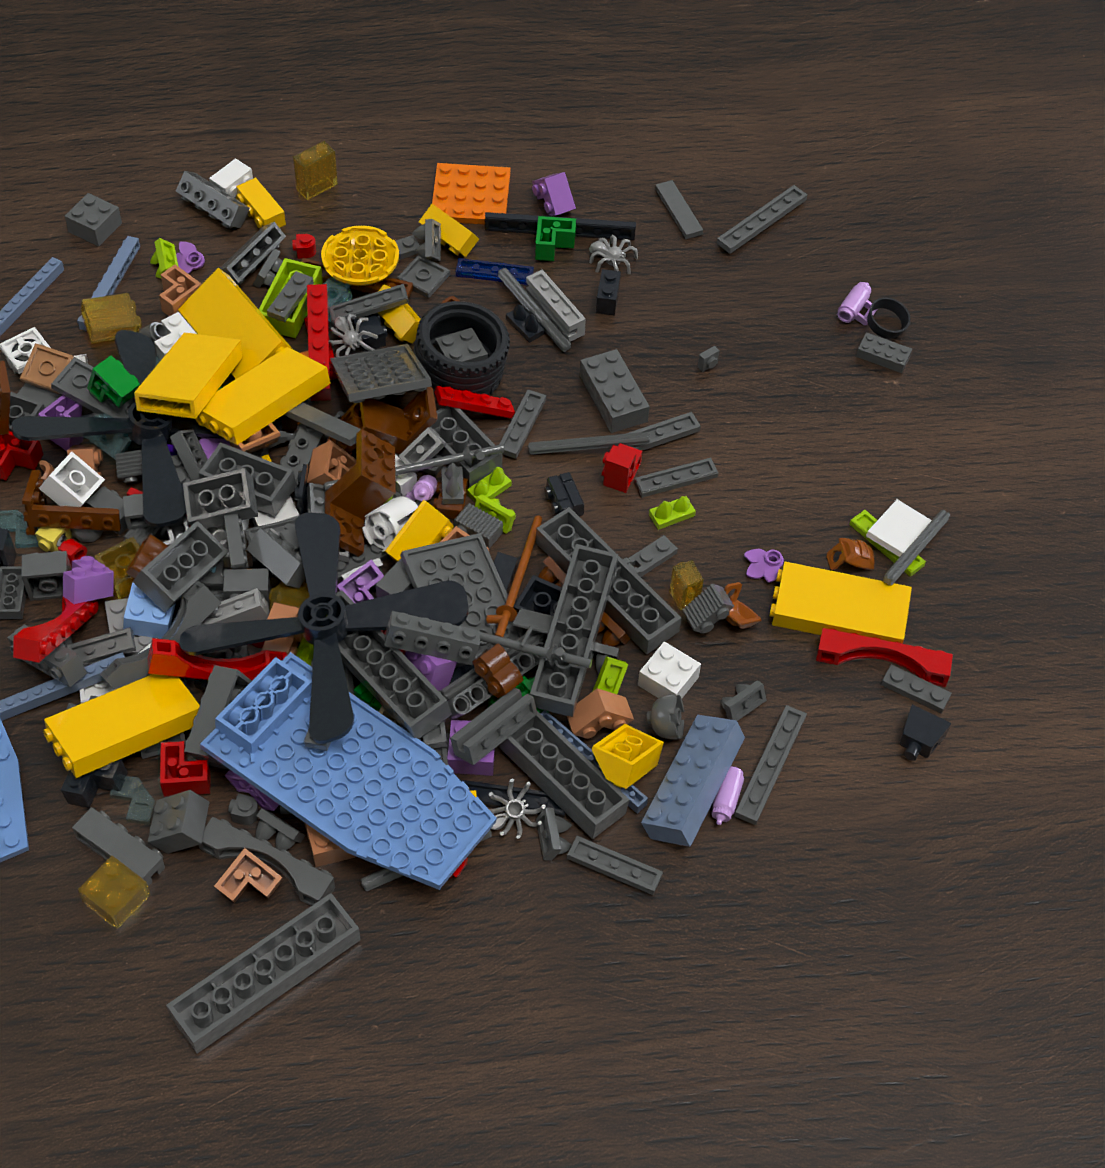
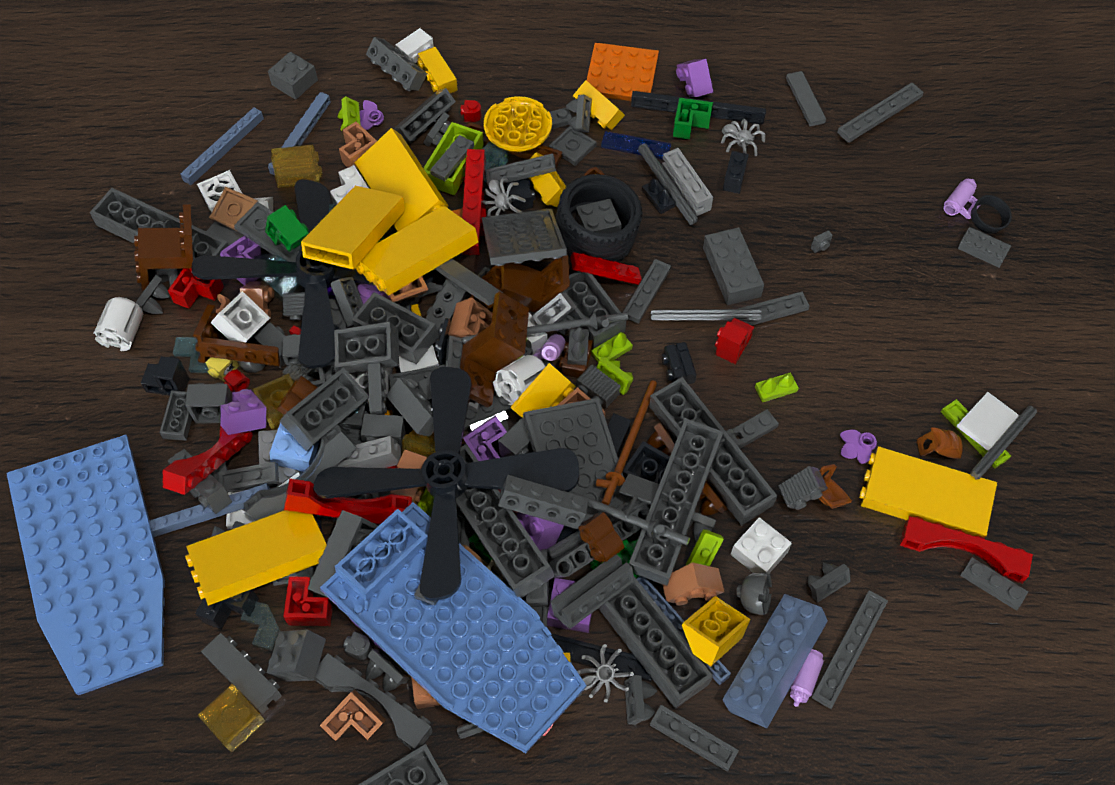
camera: 10 degrees right, 5 degrees up
(154, 331) = (331, 181): dark grey brick -> none
(315, 170) = (487, 43): clear yellow brick -> none
(676, 477) = (783, 353): dark grey tile -> none
(685, 583) = (784, 461): clear yellow brick -> none
(922, 733) = (997, 630): black torso -> none

